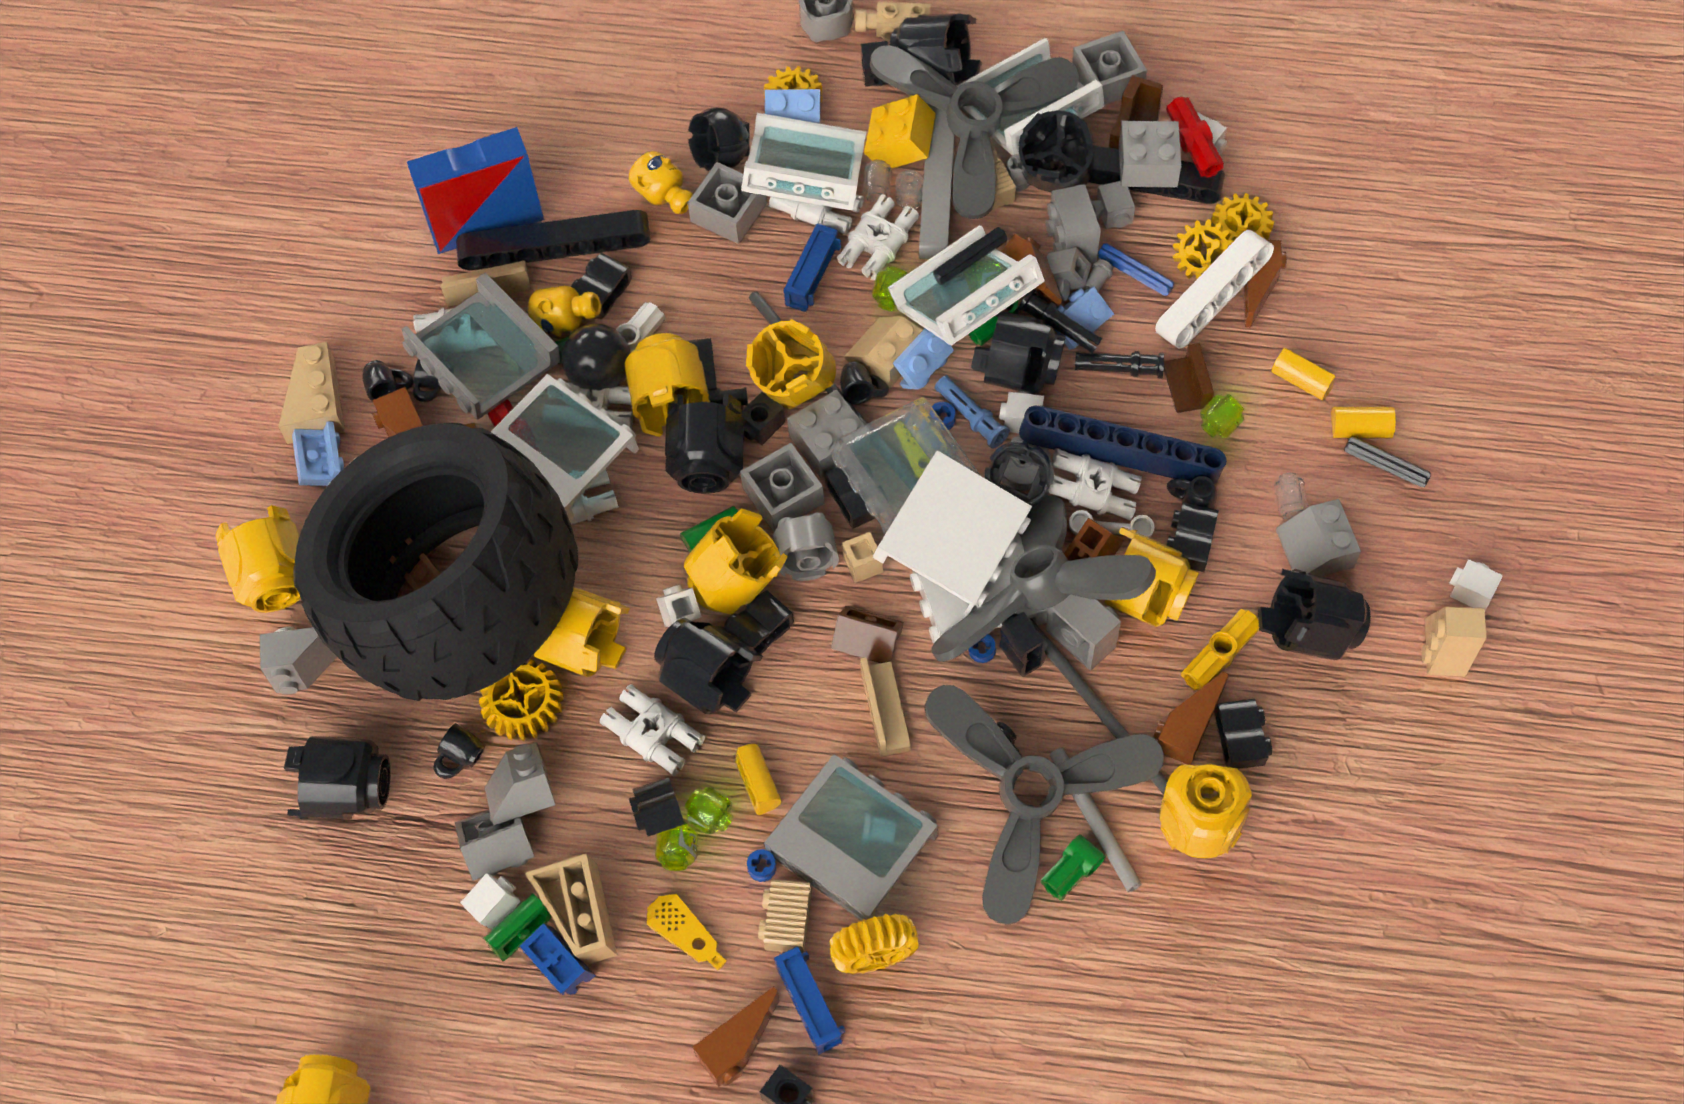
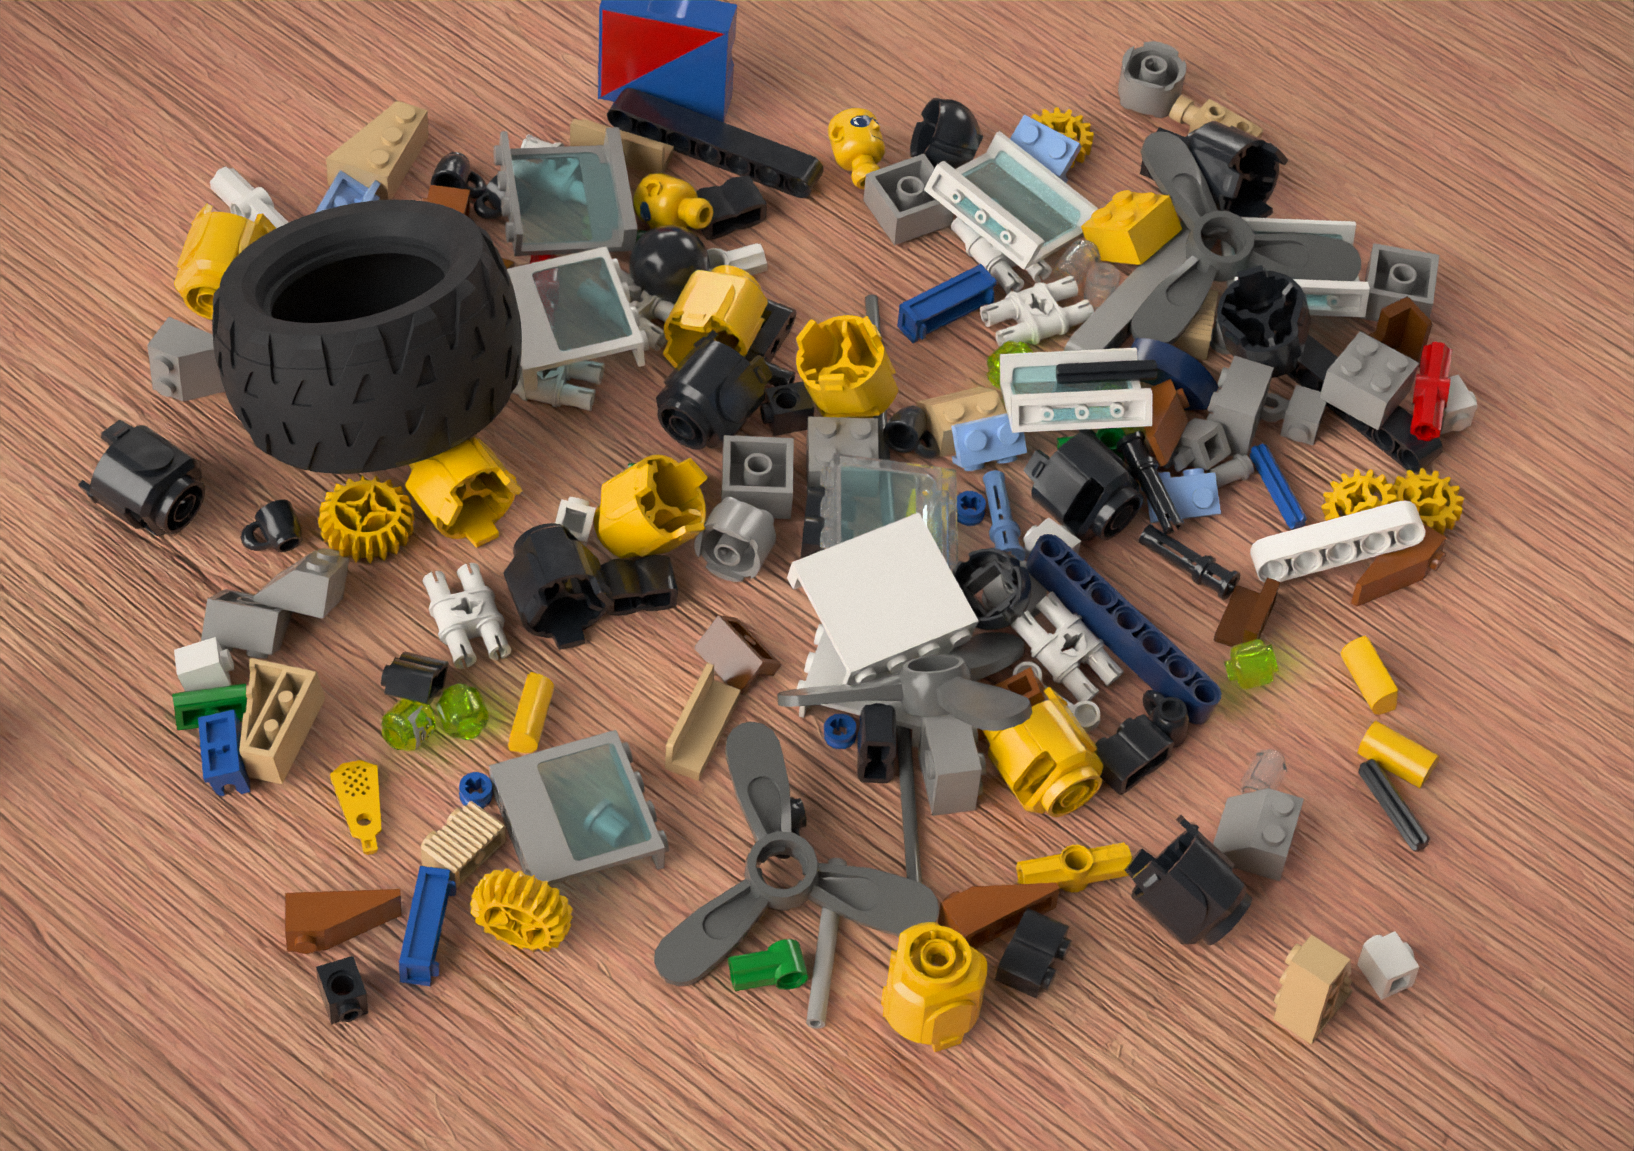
camera: 25 degrees right, 10 degrees down
(242, 498) = (243, 198): none -> white piece
(859, 557) = (776, 585): tan brick -> none
(1011, 220) = (1180, 368): none -> dark blue arch

